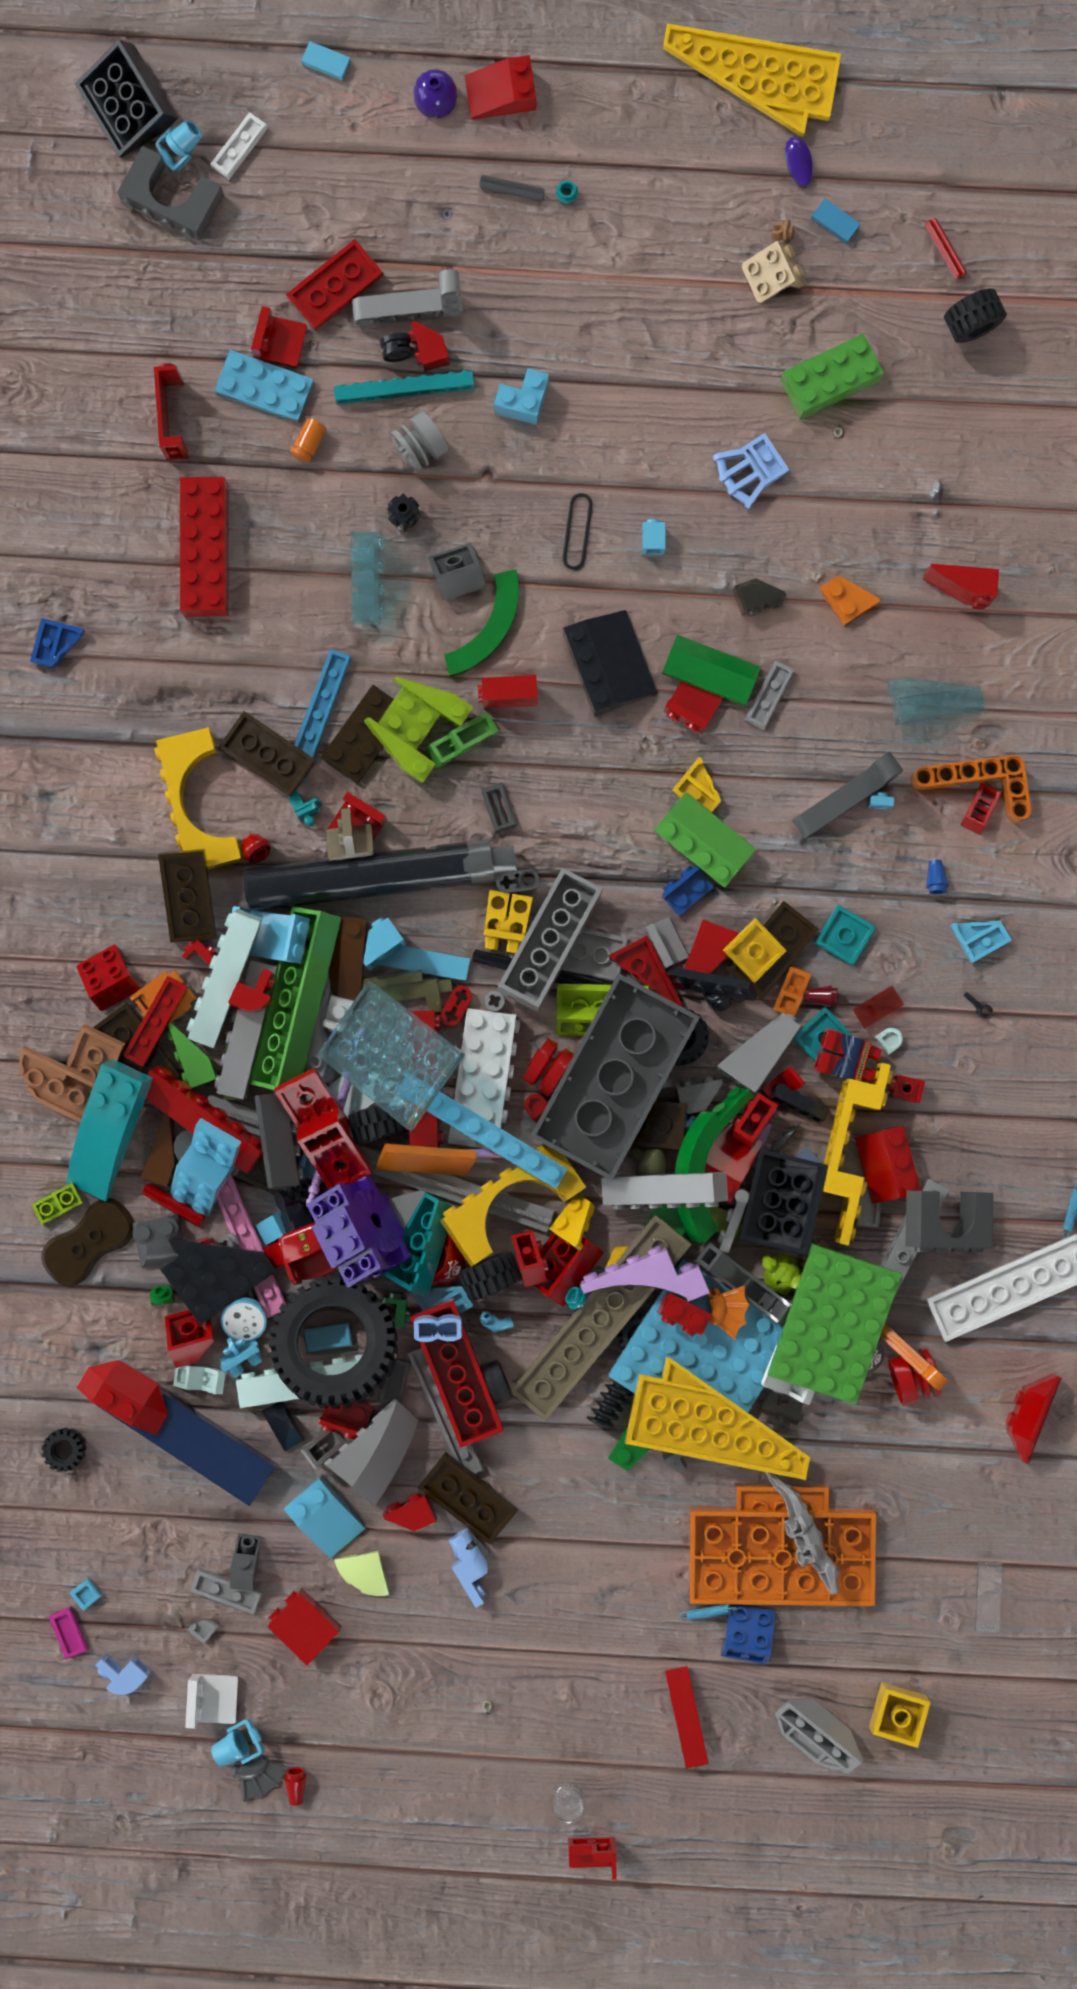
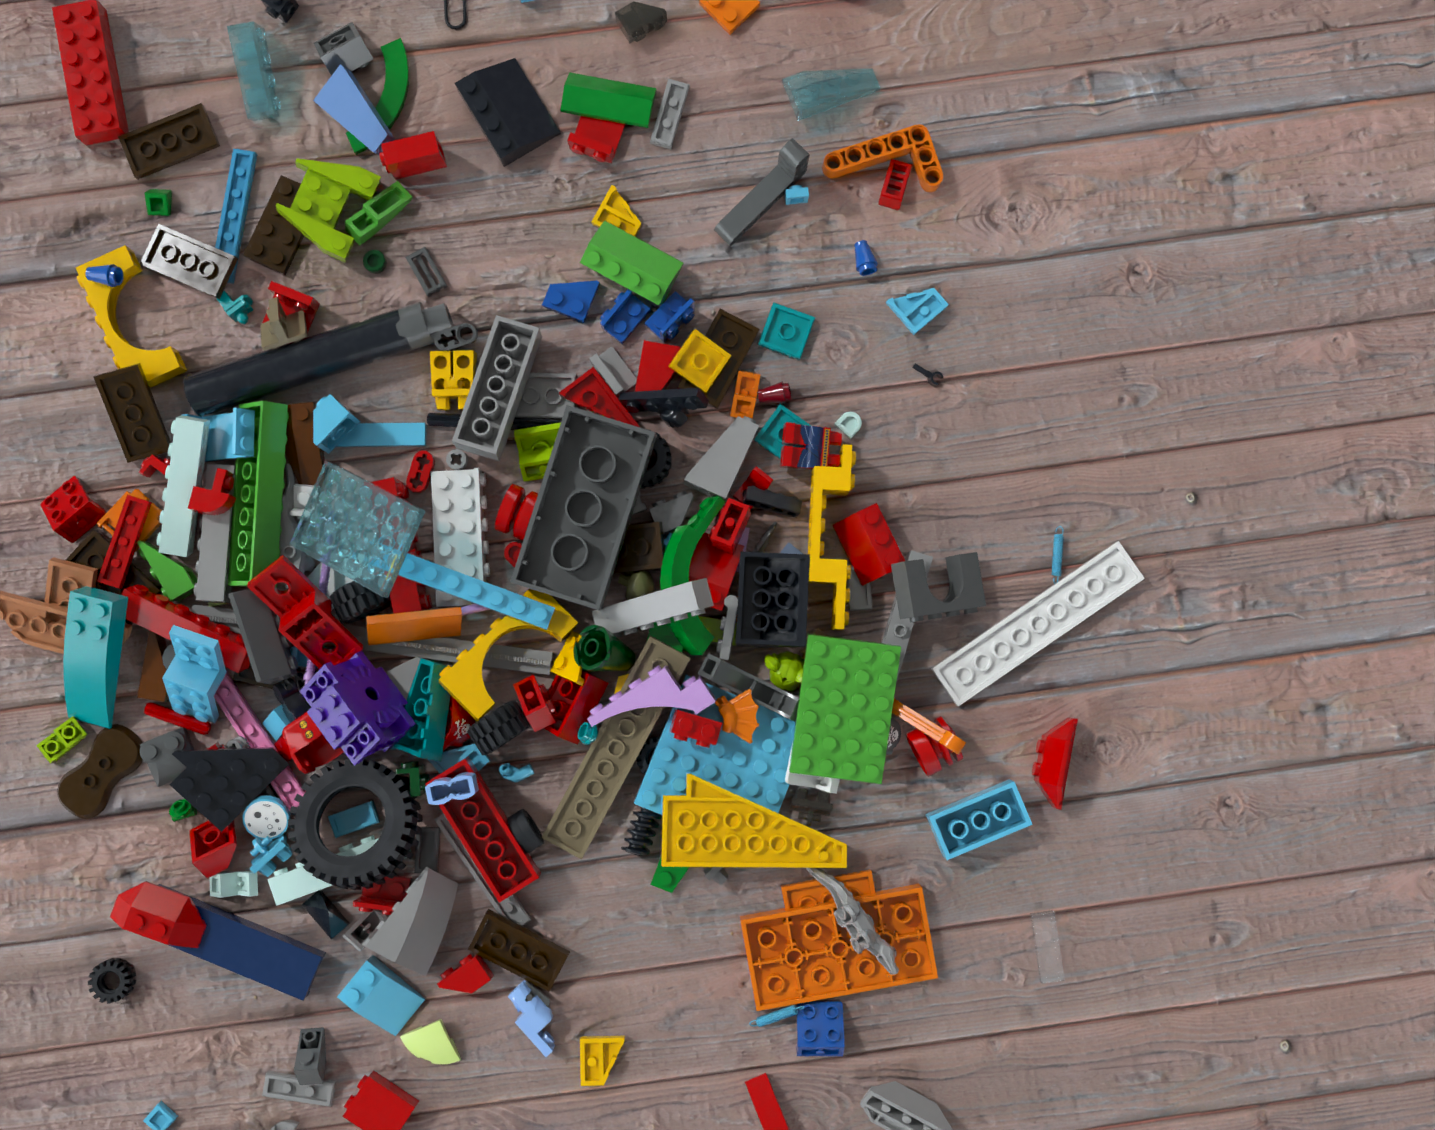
camera: 15 degrees left, 0 degrees up
(185, 754) = (106, 275): none -> blue cone
(246, 687) = (158, 202): none -> green slope
(255, 848) = (194, 355): red cone -> none
(268, 629) = (169, 141): none -> dark brown plate
(411, 985) = (373, 459): olive piece -> none
(449, 787) = (374, 261): none -> dark green tile
(457, 634) = (351, 107): none -> medium blue slope
(525, 1619) = (598, 1058): none -> yellow wing
(605, 1220) = (602, 651): none -> dark green cone
(637, 862) = (571, 298): none -> blue wing
(729, 900) = (671, 316): none -> blue bracket
(878, 1006) = (831, 394): clear red slope -> none
(899, 1714) = (982, 1080): yellow brick -> none
(913, 1095) = (866, 473): red brick -> none
(944, 1457) = (978, 819): none -> medium azure brick

